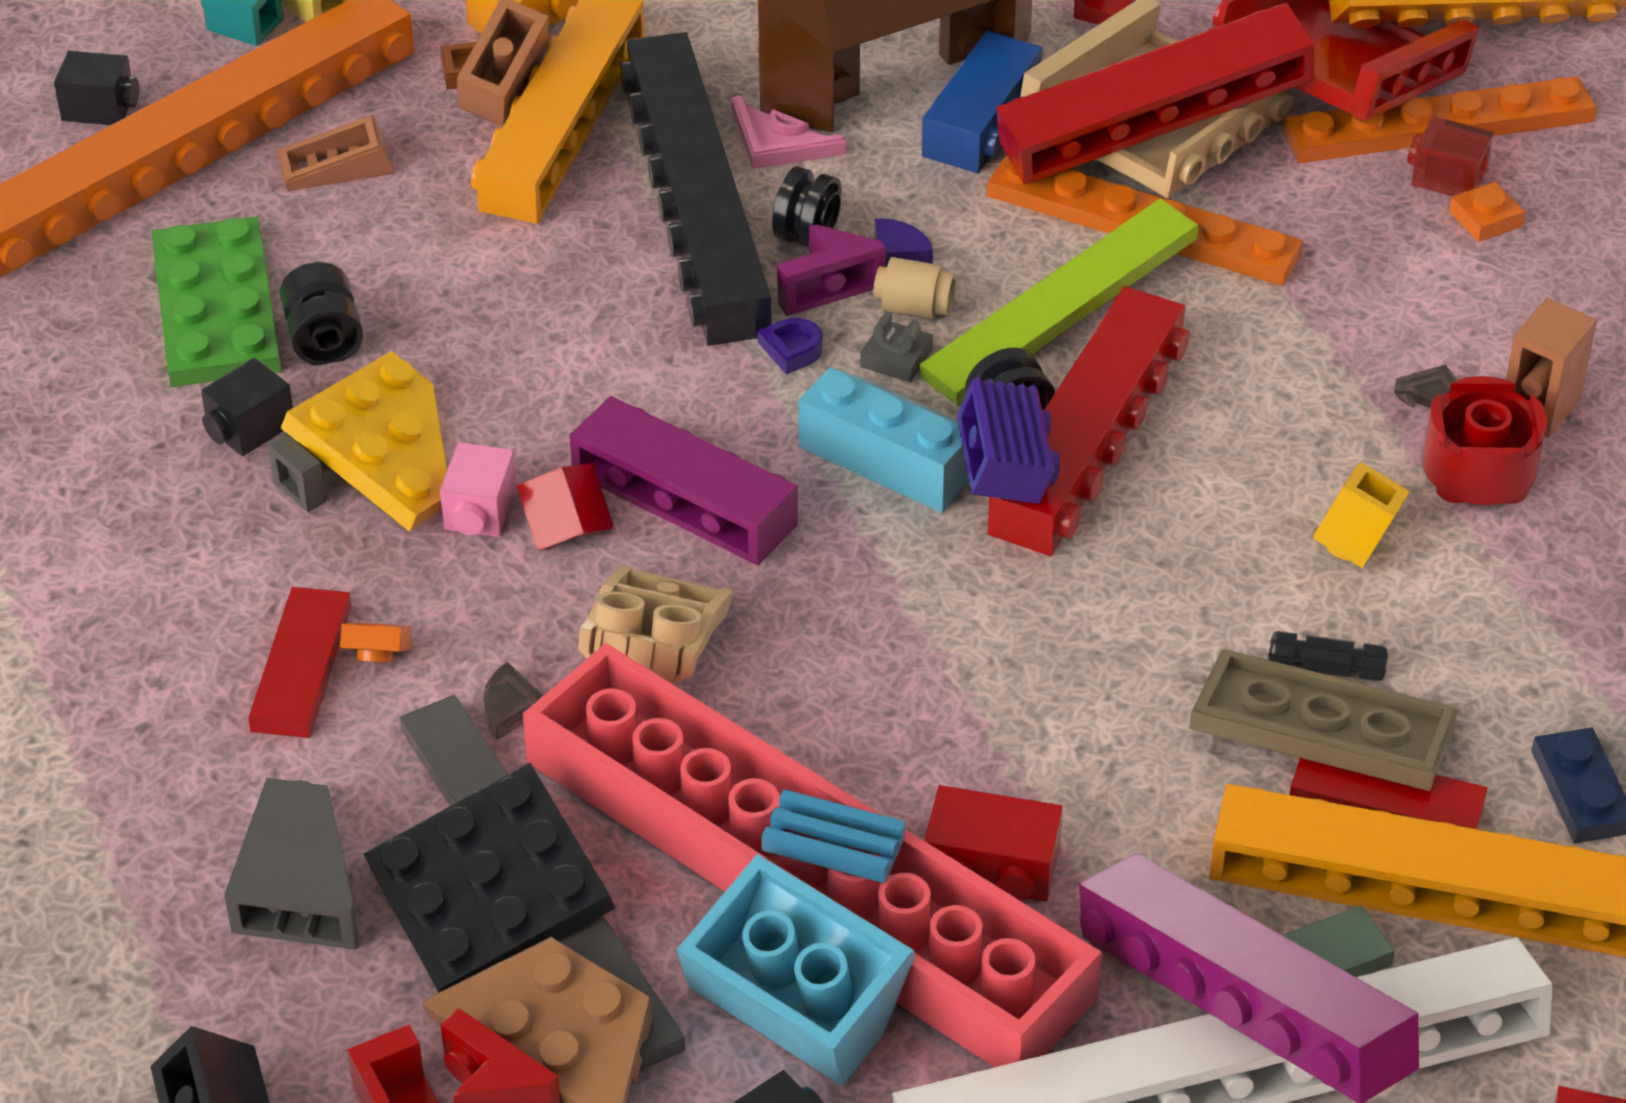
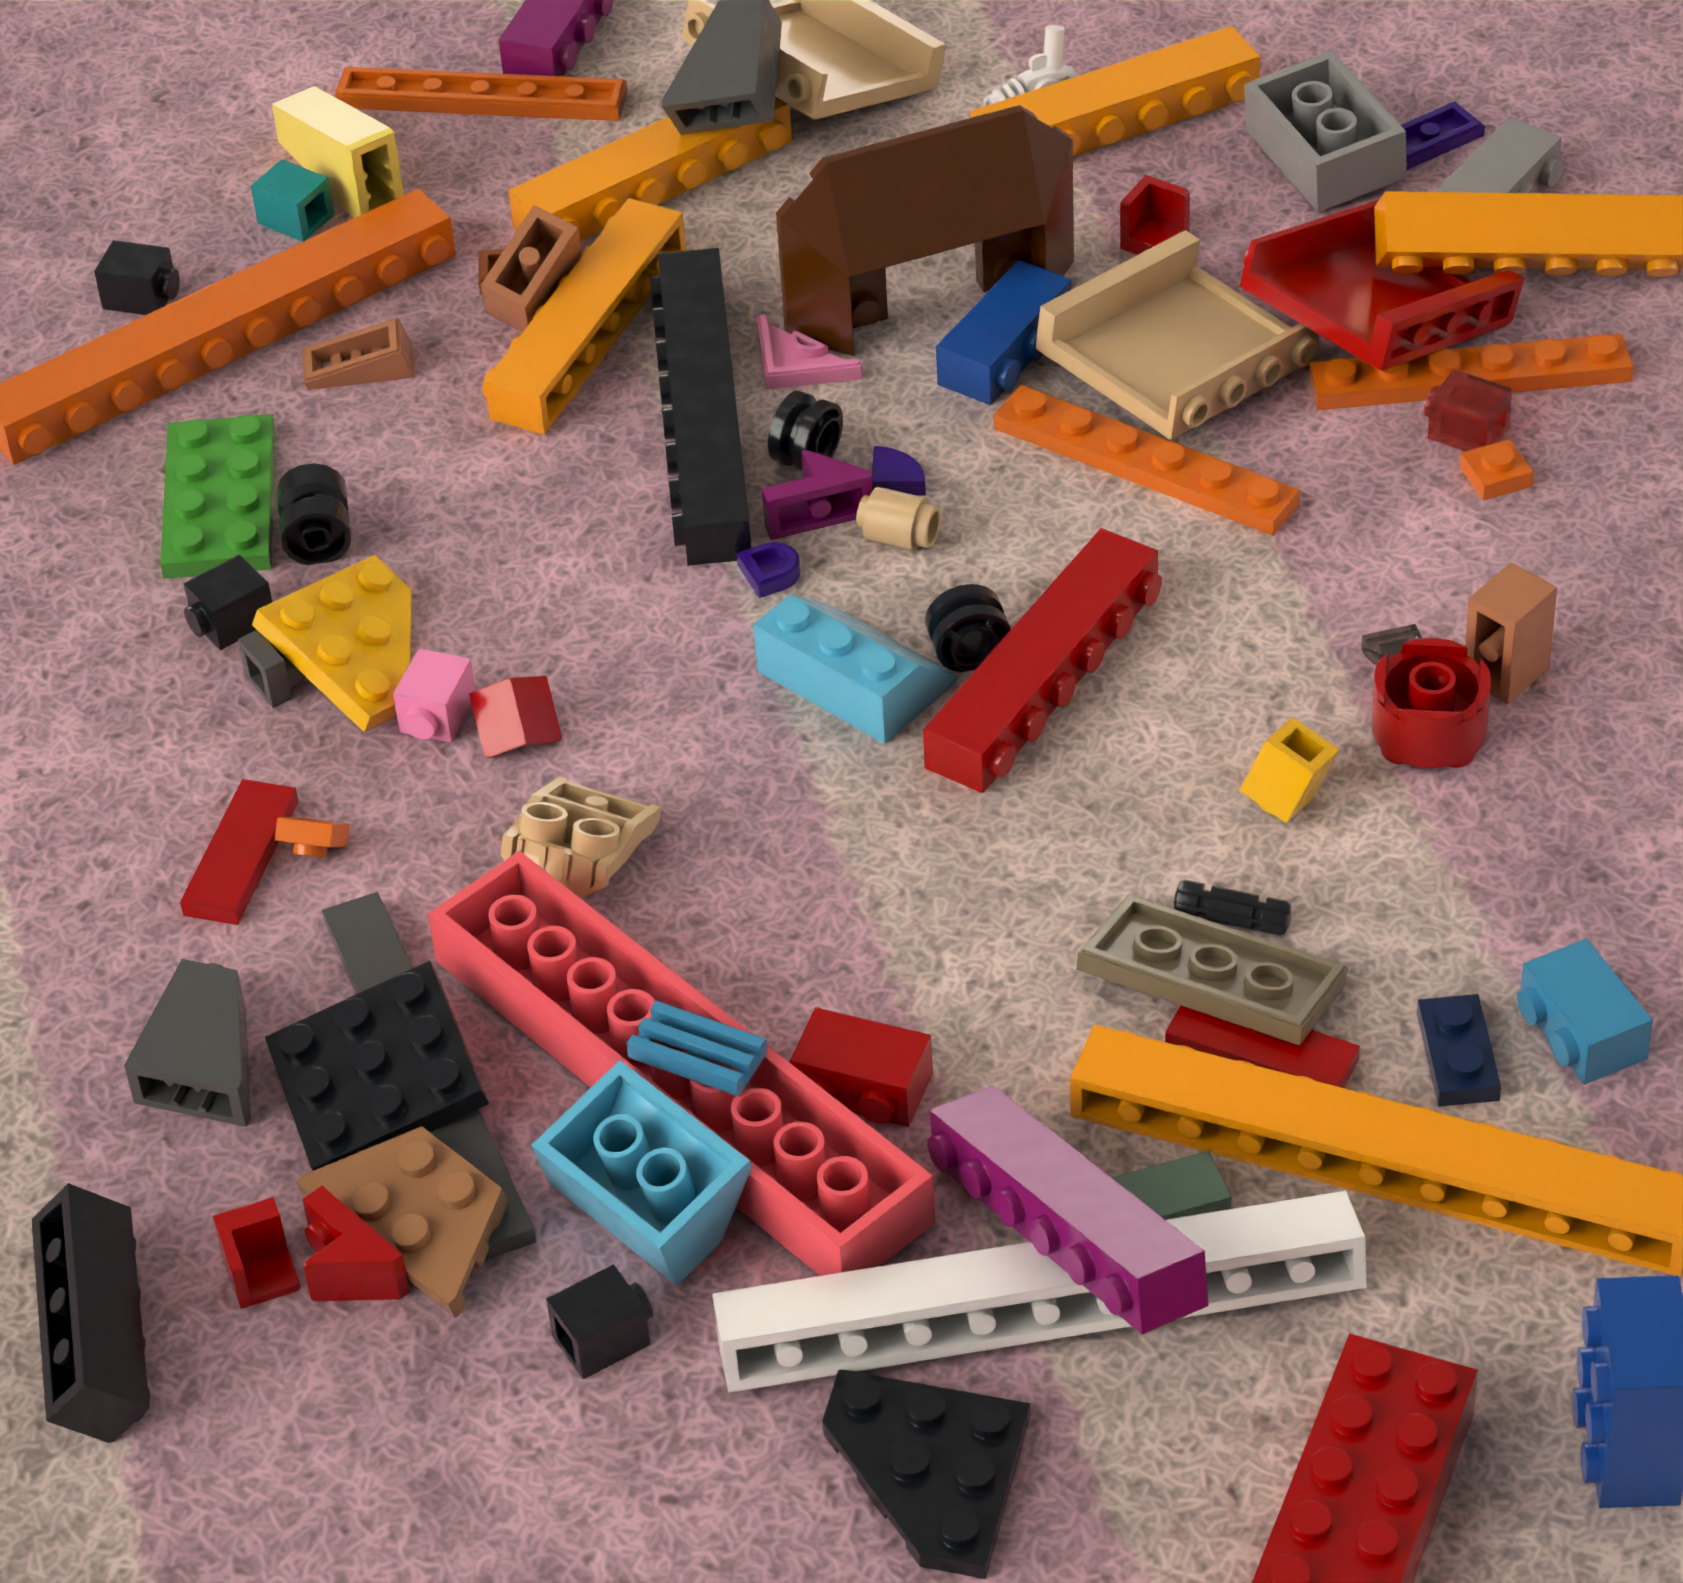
camera: 10 degrees right, 0 degrees up
(506, 699) = (422, 896): clear smoke tile -> none
(686, 480) = (636, 697): magenta brick -> none
(896, 349) = (870, 578): dark grey tile -> none
(1007, 441) = (944, 677): dark purple brick -> none
(1064, 295) = (1048, 531): lime tile -> none
(1155, 93) = (1168, 333): red brick -> none

